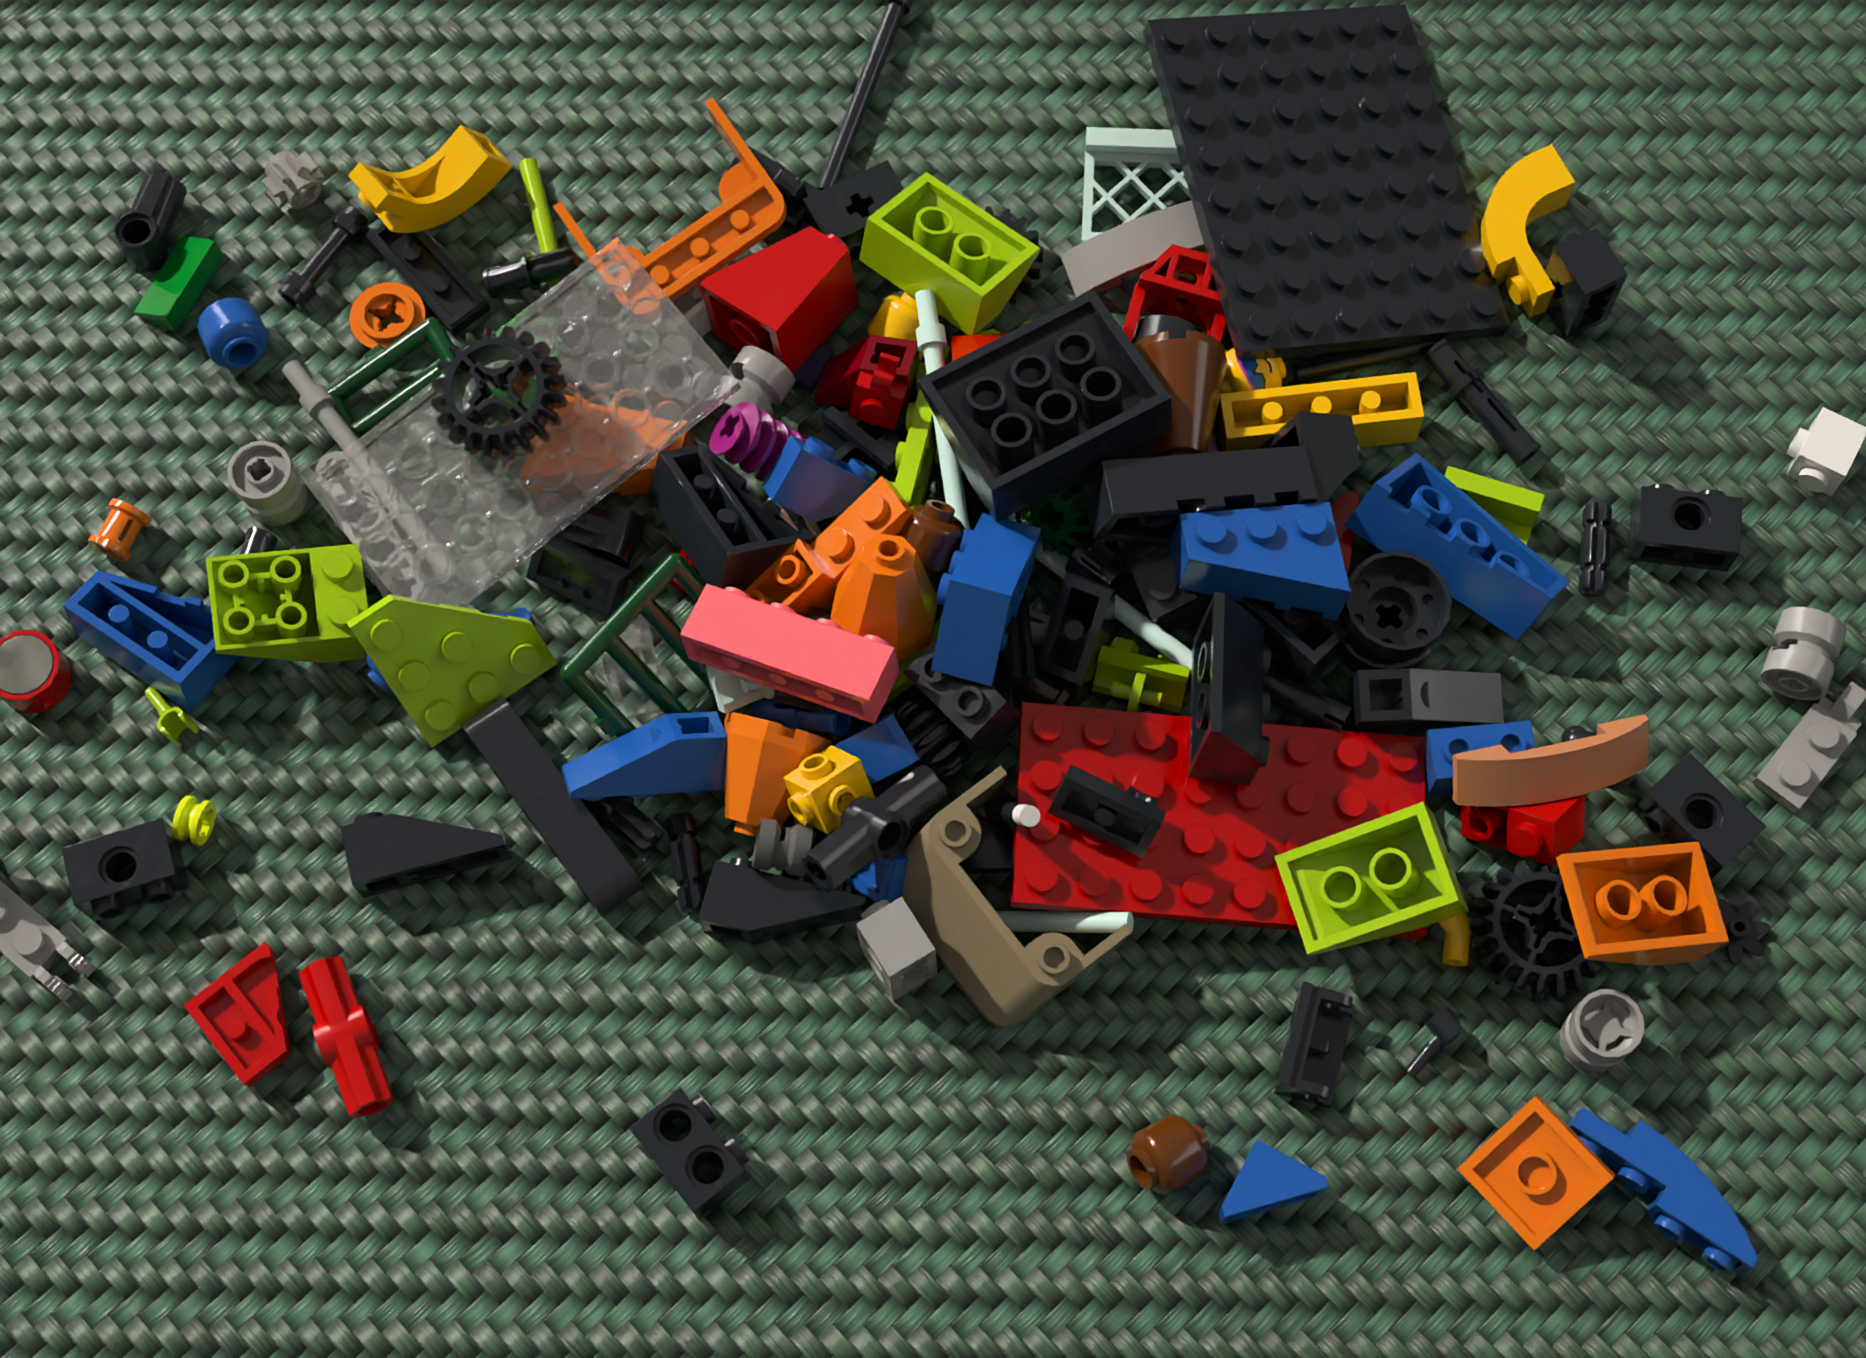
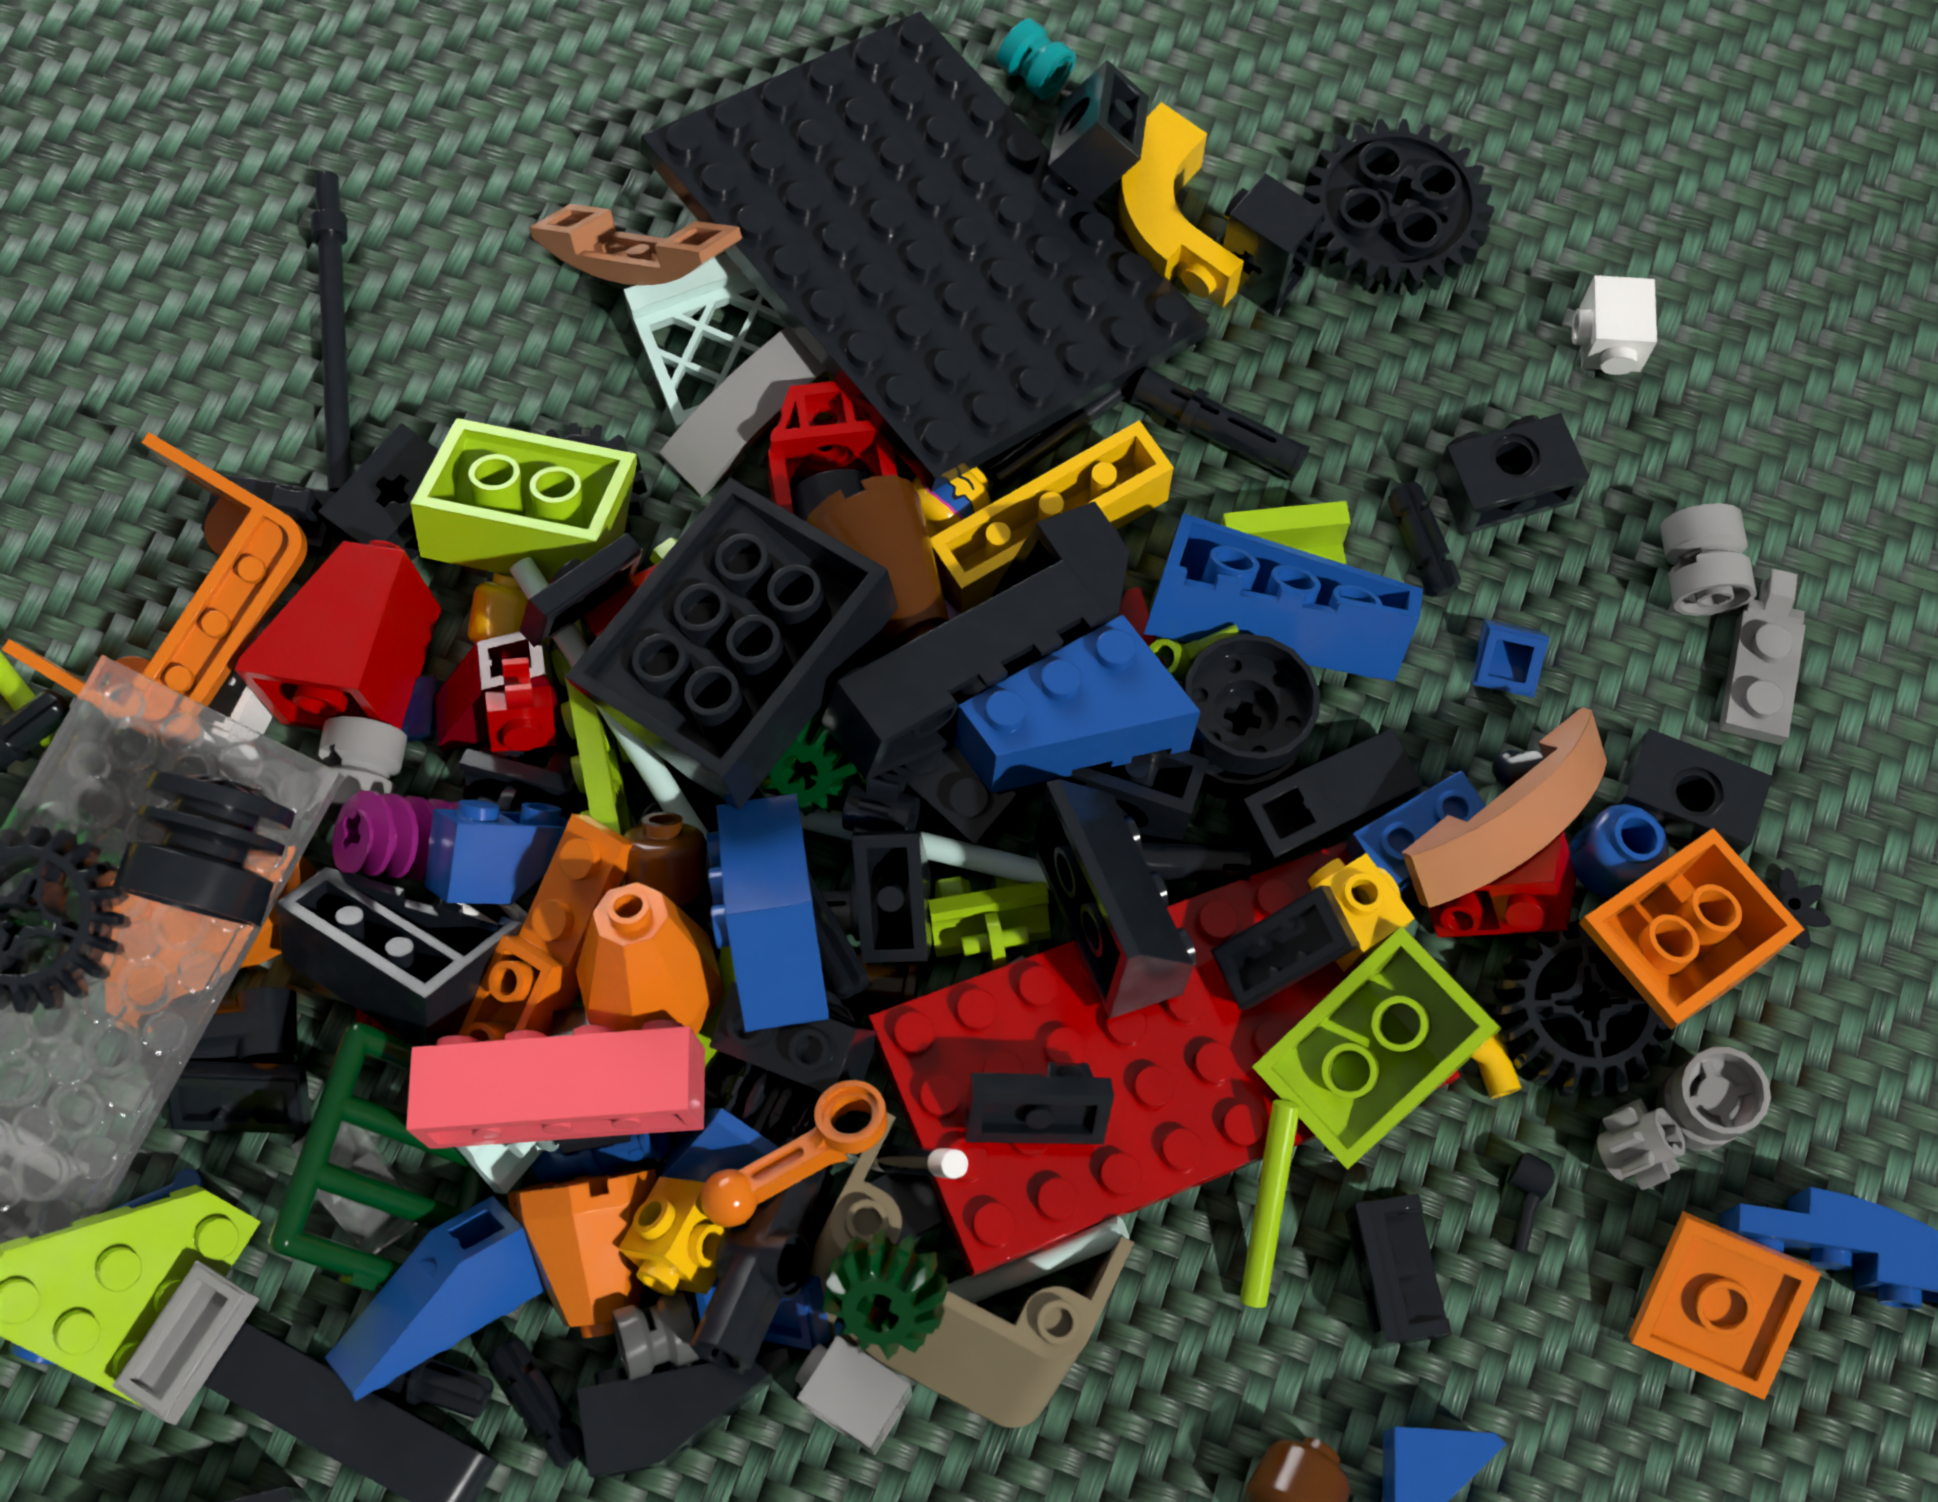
camera: 30 degrees left, 0 degrees up
(478, 714) = (185, 1343): none -> light grey tile
(630, 392) = (204, 847): none -> black wheel
(873, 774) = (732, 1194): none -> orange piece
(941, 901) = (885, 1294): none -> dark green gear
(956, 326) = (580, 589): none -> black plate
(1081, 85) = (590, 243): none -> nougat slope
(1243, 955) = (1269, 1203): none -> lime bar
(1335, 783) = (1285, 947): none -> black plate
(1365, 550) = (1187, 653): none -> lime hand
(1399, 777) = (1367, 900): none -> yellow brick
(1475, 74) = (1036, 59): none -> teal wheel
(1492, 148) = (1099, 132): none -> black brick
(1533, 1038) = (1641, 1144): none -> light grey gear
(1616, 662) = (1509, 657): none -> blue slope
(1622, 823) = (1617, 849): none -> blue head
(1699, 295) = (1399, 206): none -> black gear

